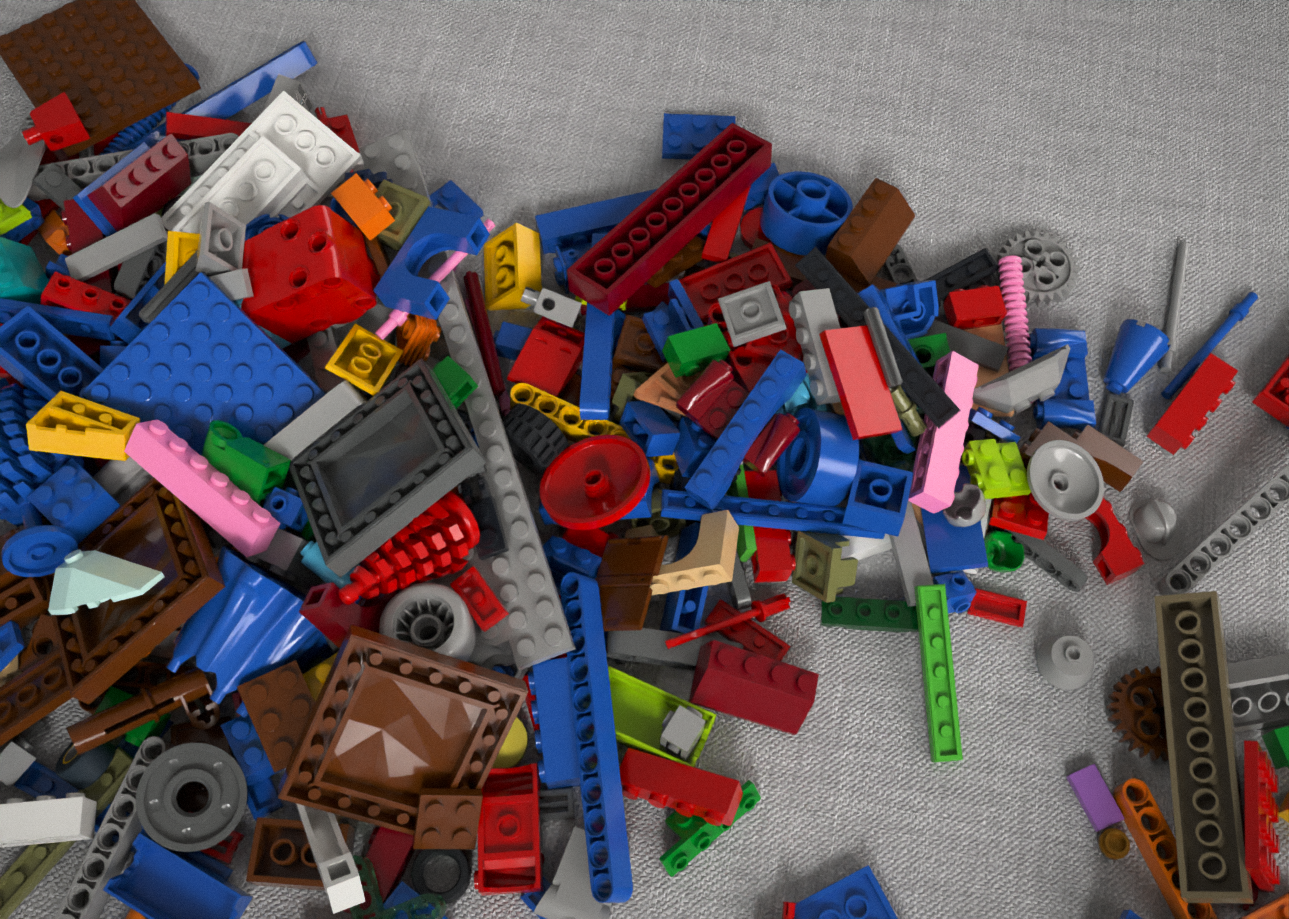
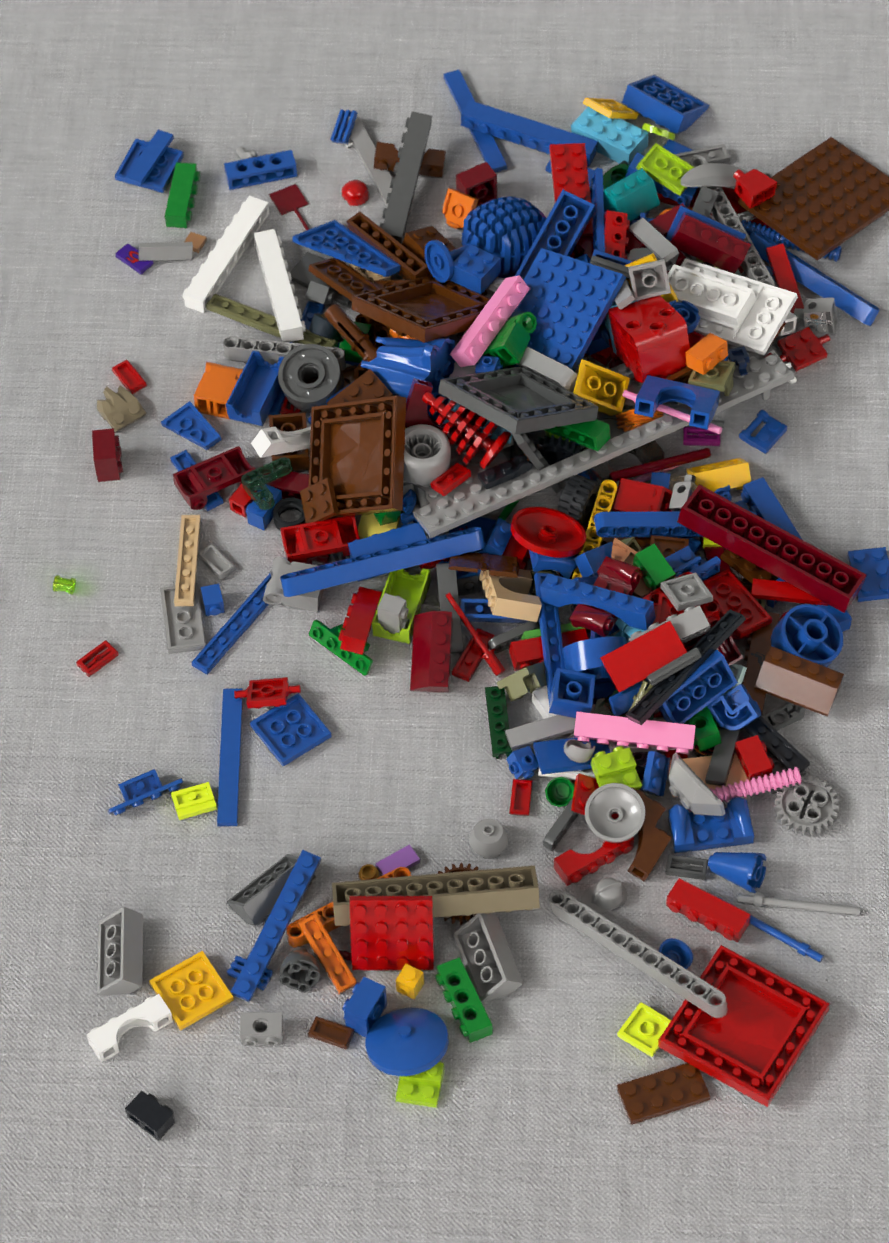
camera: 85 degrees right, 10 degrees down
(80, 428) = (515, 251): yellow wedge -> none
(95, 578) = (422, 289): light aqua wedge -> none
(938, 673) = (463, 756): bright green tile -> none
(1263, 454) = (677, 952): none -> blue helmet

